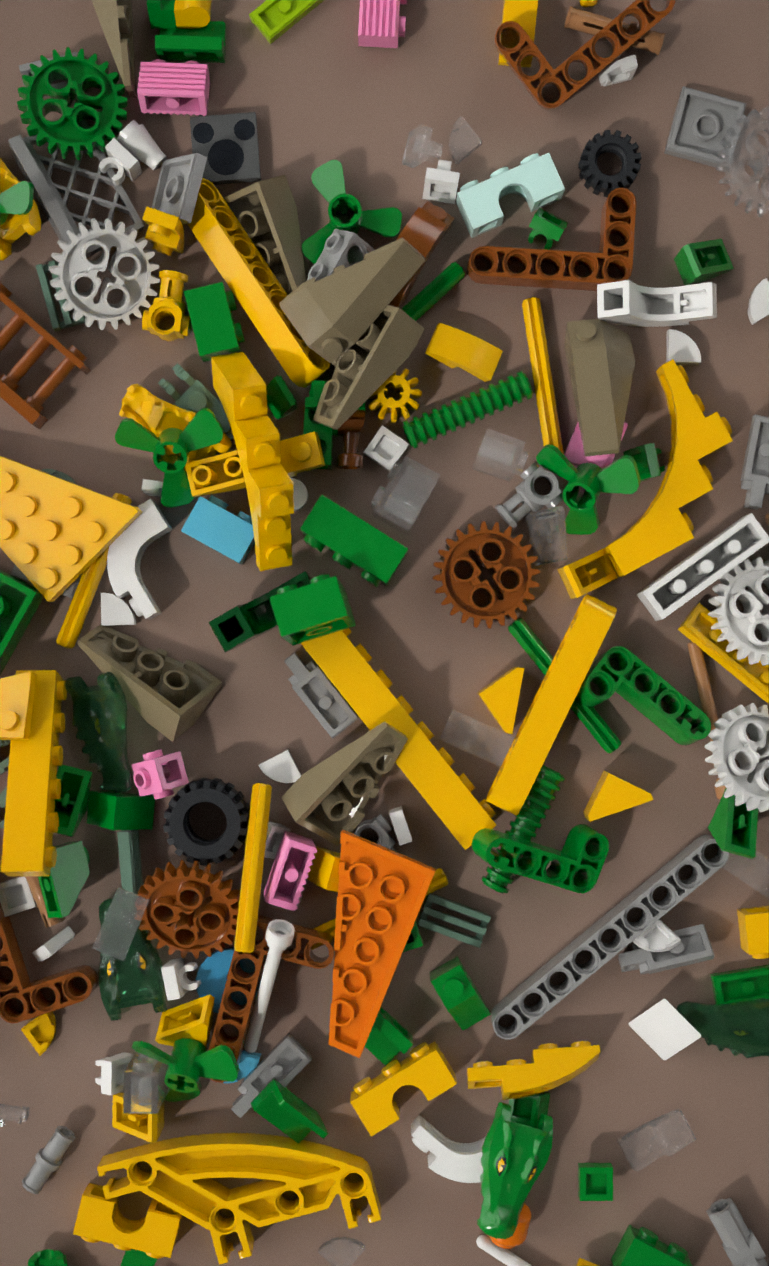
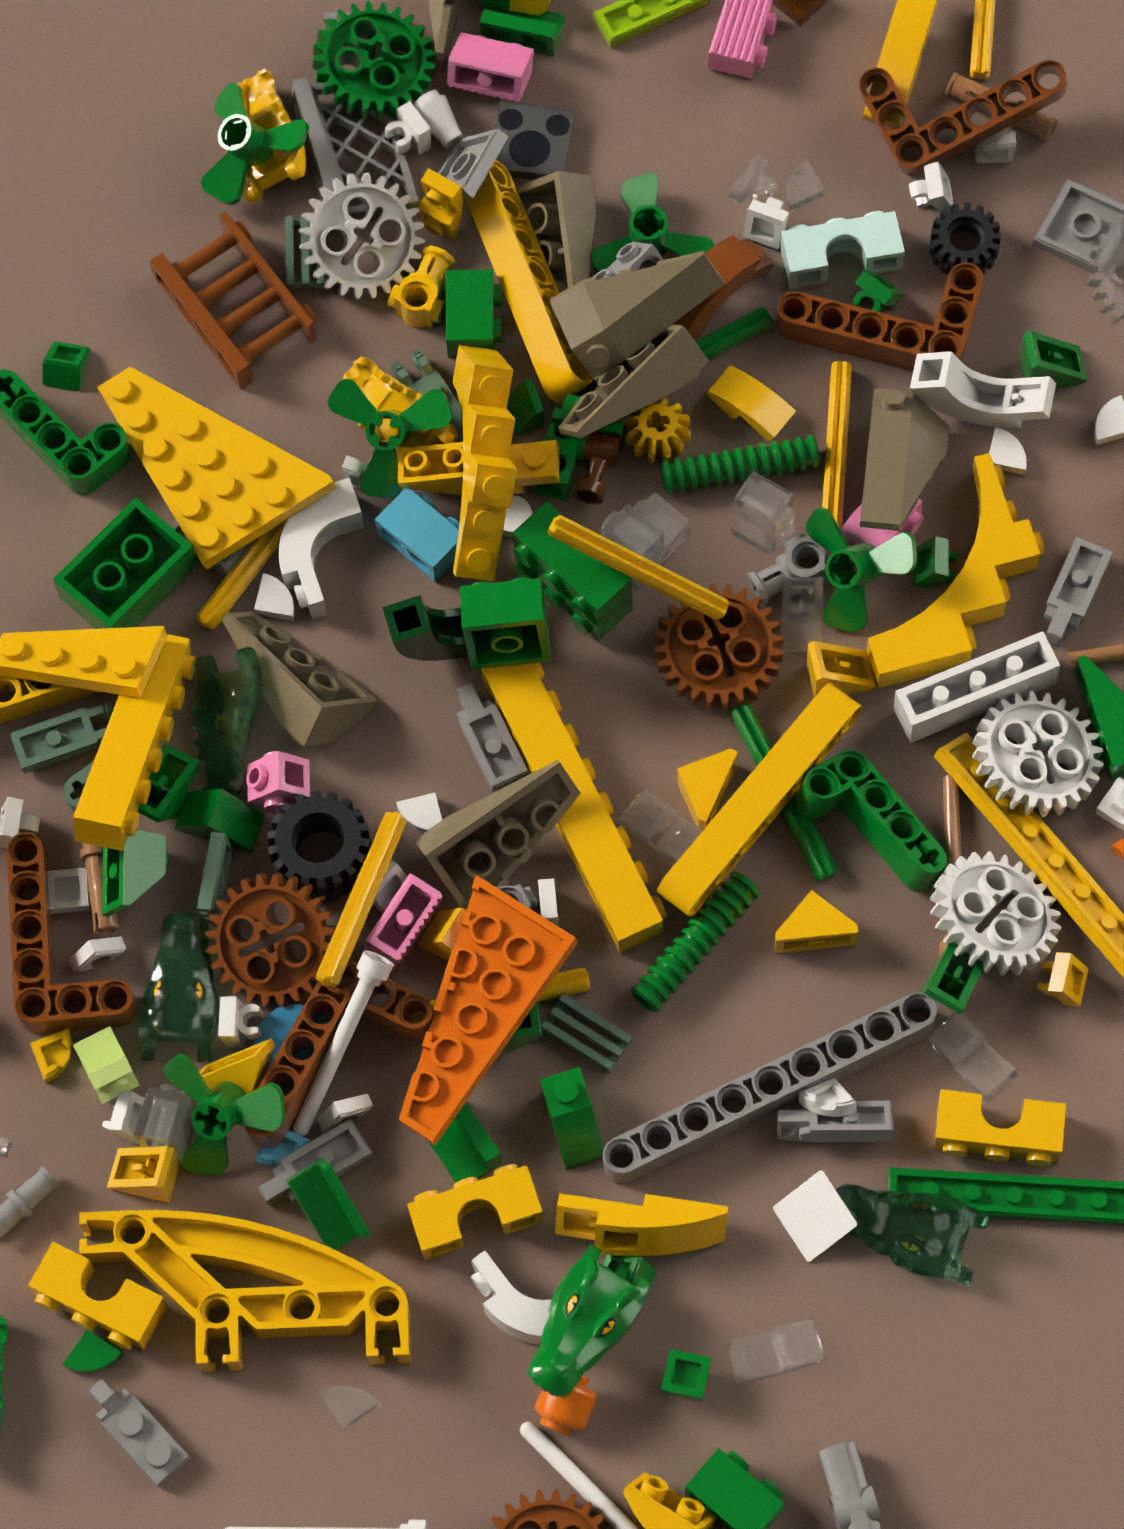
camera: 25 degrees right, 20 degrees down
(85, 1038) = (106, 1064): none -> yellowish green brick
(120, 924) = (188, 932): clear slope -> none
(282, 1029) = (342, 1109): none -> white tile
(386, 448) = (634, 486): white tile -> none
(410, 538) = (638, 567): none -> yellow axle
(564, 864) = (704, 959): green beam -> none
(575, 122) = (933, 190): none -> white tile

